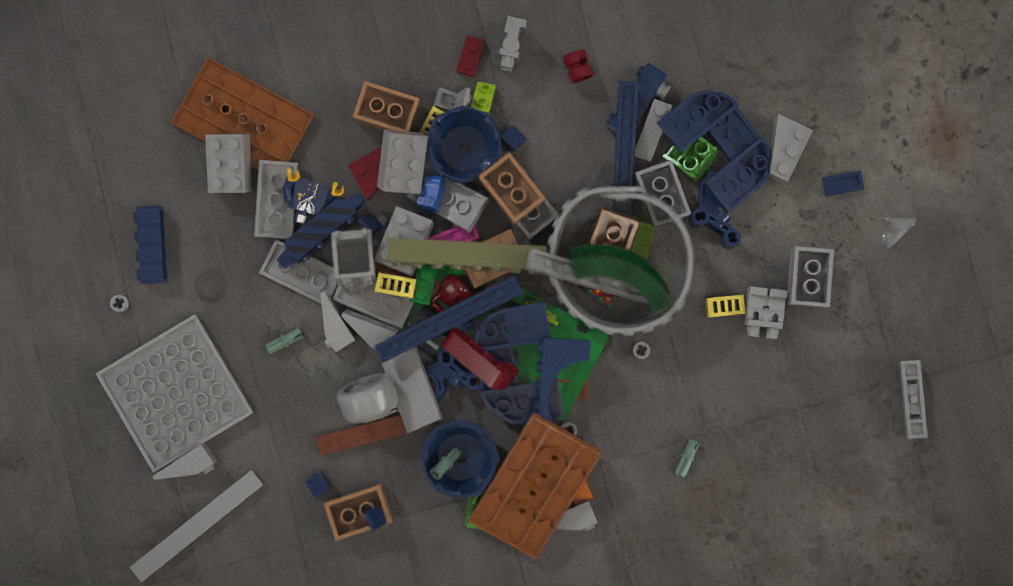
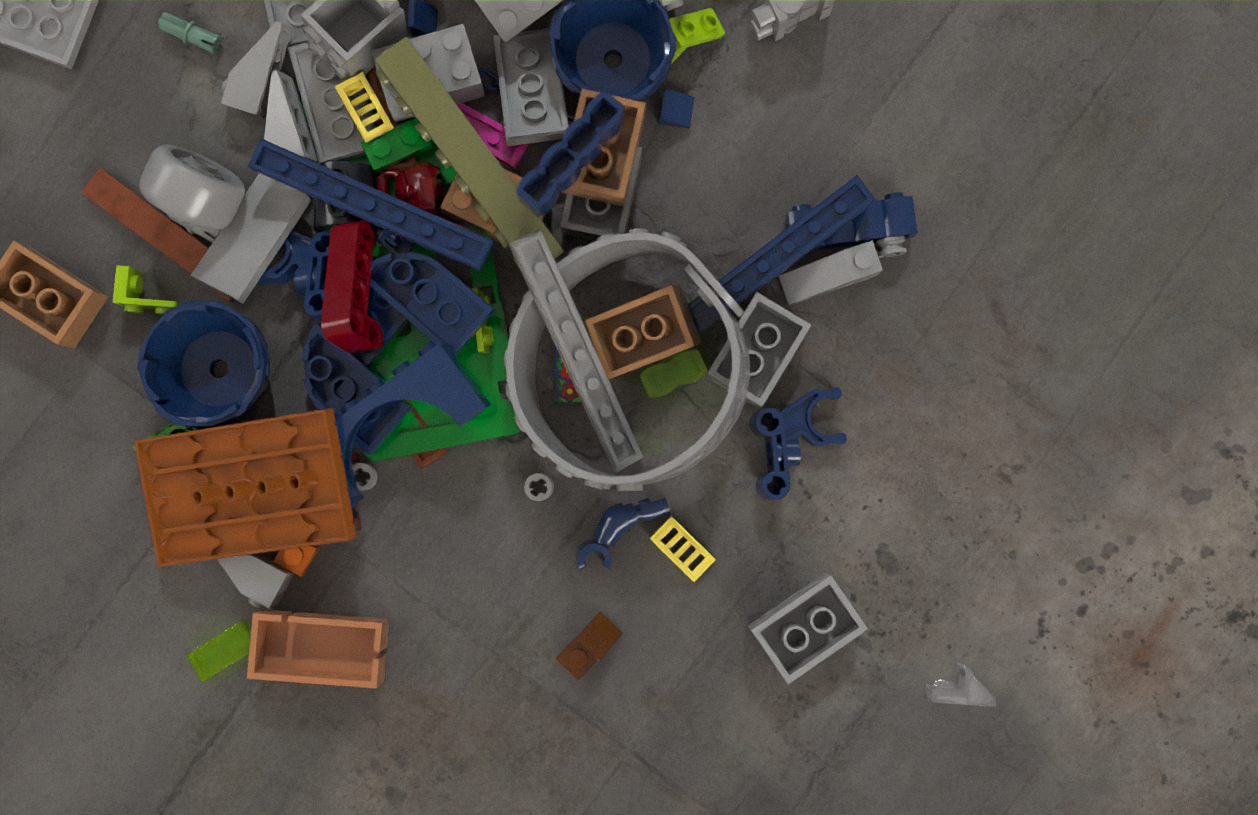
camera: 50 degrees right, 0 degrees up
(318, 484) = (45, 220): dark blue slope -> none
(375, 518) = (41, 317): dark blue slope -> none
(385, 466) = (127, 289): none -> lime bracket
(432, 193) = (519, 58): blue leg -> none
(445, 463) = (188, 352): sand green axle -> none
(508, 201) = (578, 148): none -> dark blue brick
(578, 66) = (836, 109): dark red wheel -> none
(598, 563) = (221, 651): none -> clear neon green tile
(623, 265) = (618, 372): dark green fence -> none
(635, 514) = (318, 648): none -> nougat piece
(687, 458) = (446, 657): sand green axle -> none
(688, 328) = (617, 521): none -> dark blue piece
(694, 159) = (841, 349): bright green slope -> none
(734, 136) = (909, 380): dark blue plate -> none
(735, 387) = (589, 646): none -> reddish brown slope
(759, 316) = (704, 604): light grey hips -> none
(786, 147) = (949, 462): light grey wedge -> none
(842, 183) = (963, 572): dark blue tile -> none

